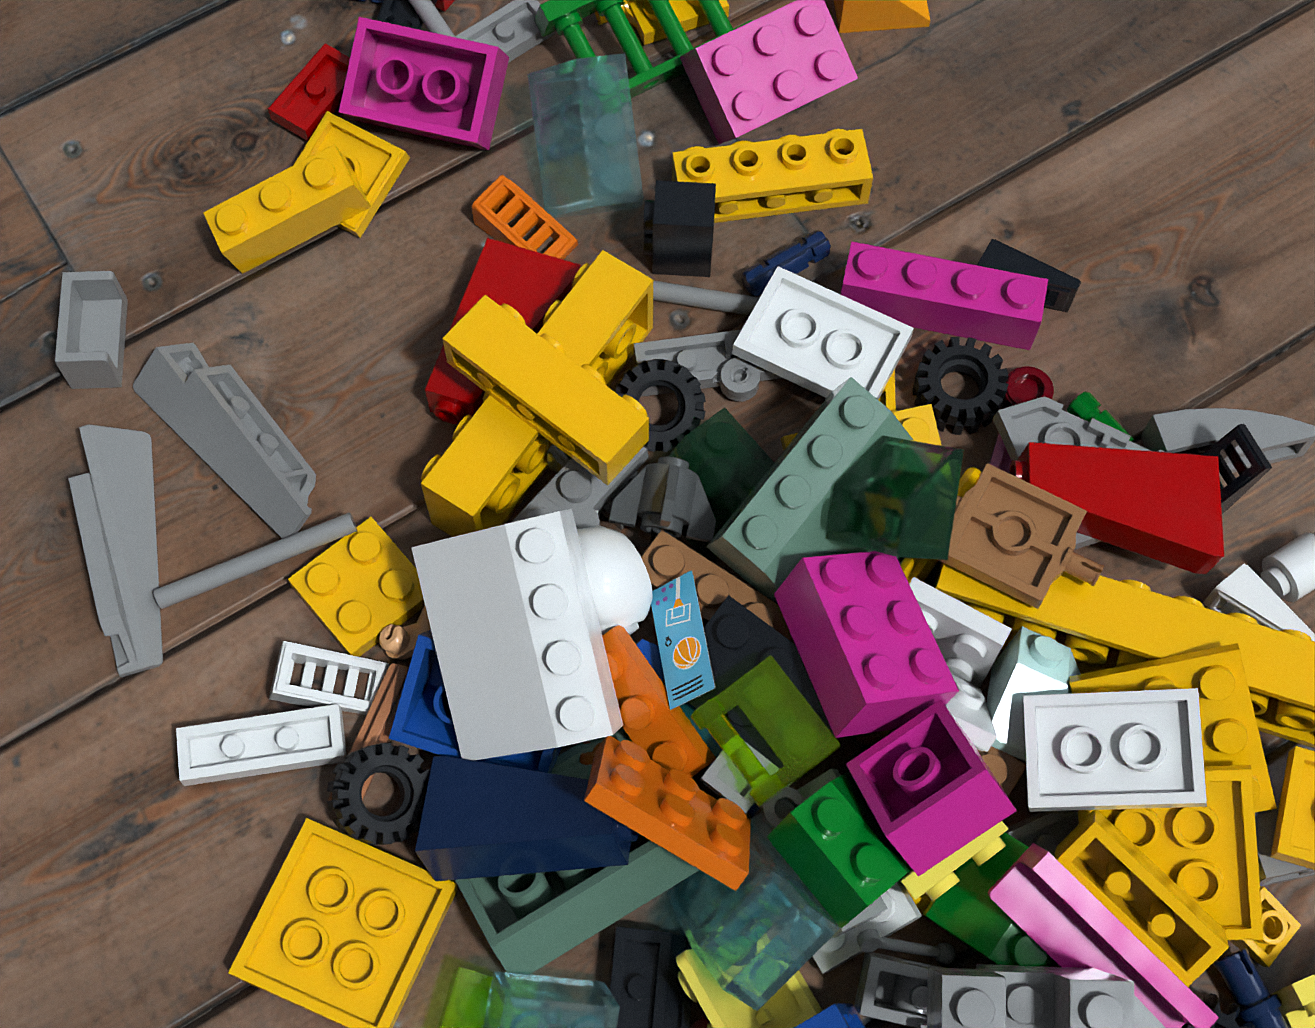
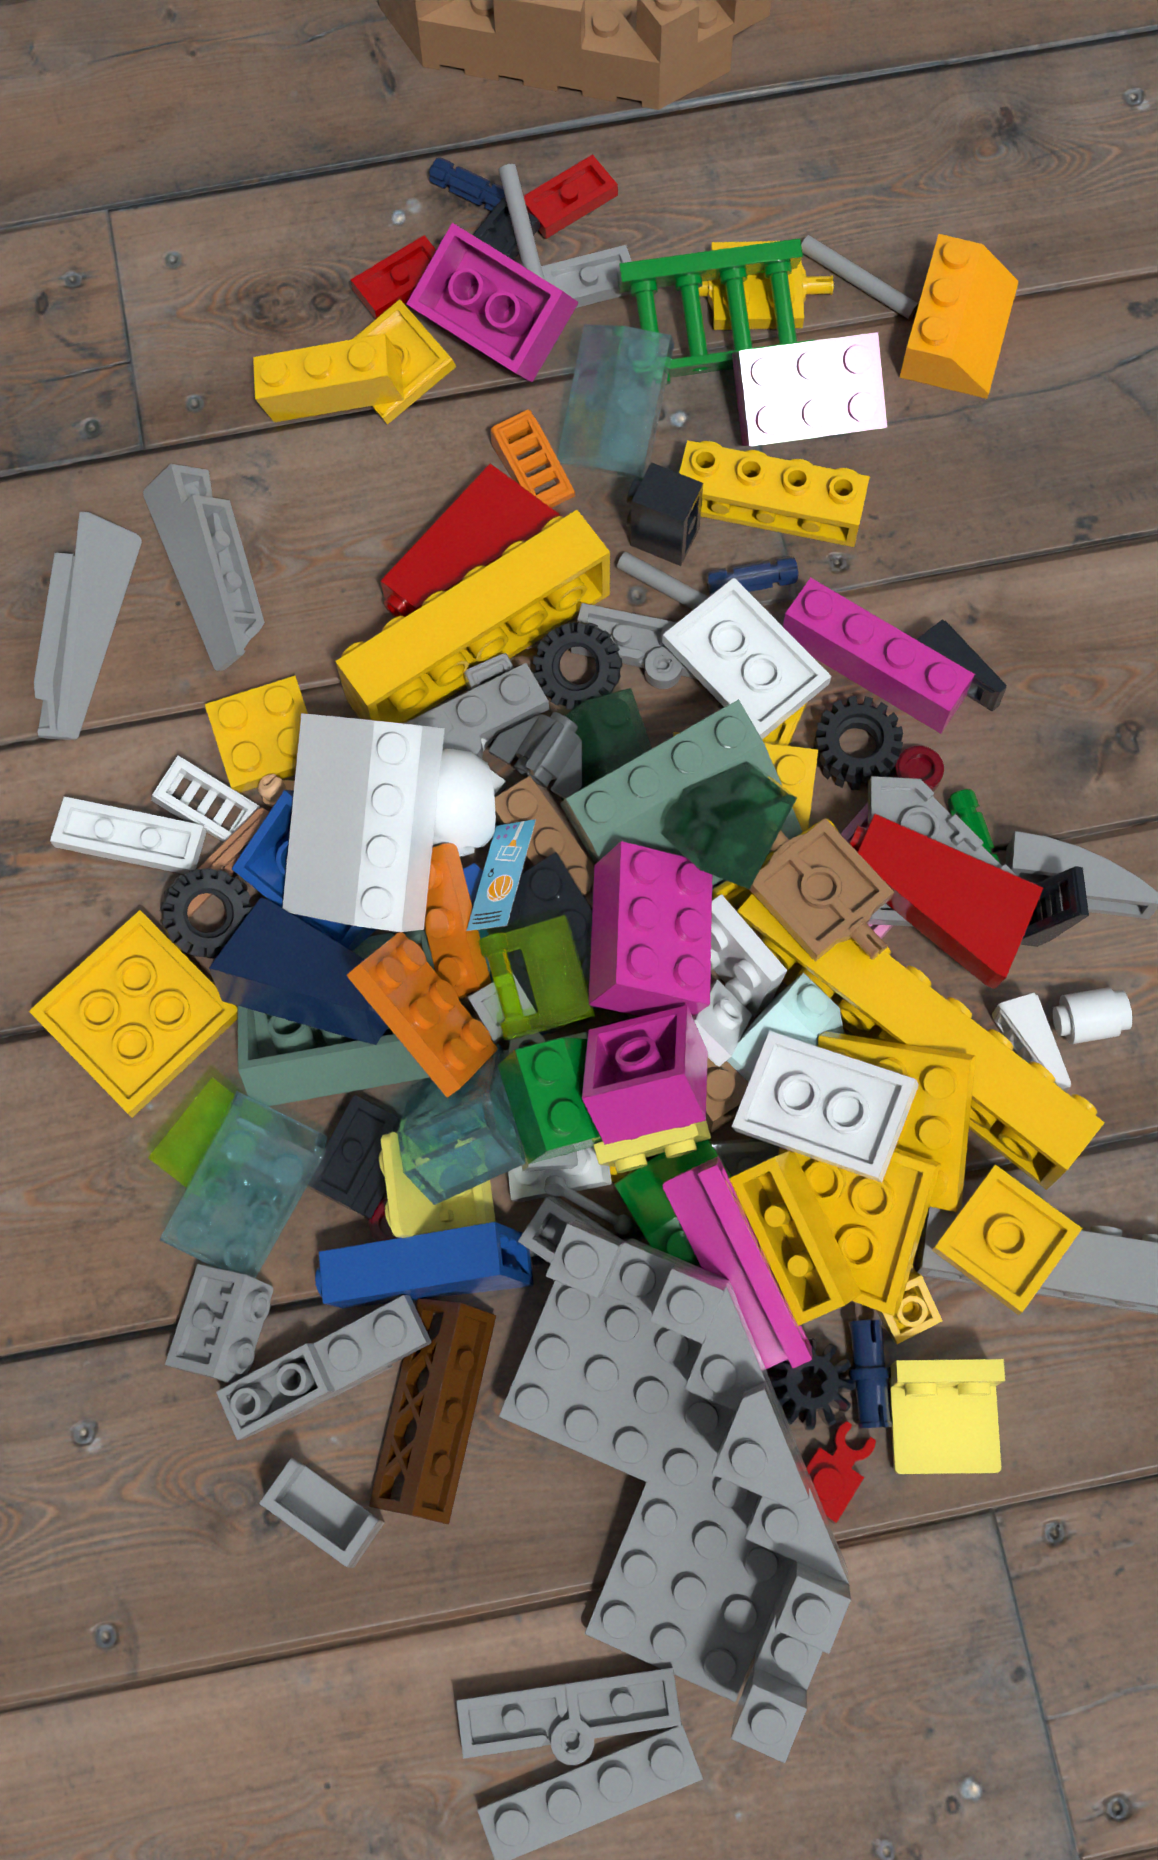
camera: 25 degrees right, 5 degrees up
(91, 330) = (124, 429): light grey panel -> none
(255, 560) = (184, 678): light grey bar -> none
(547, 388) = (472, 617): yellow brick -> none

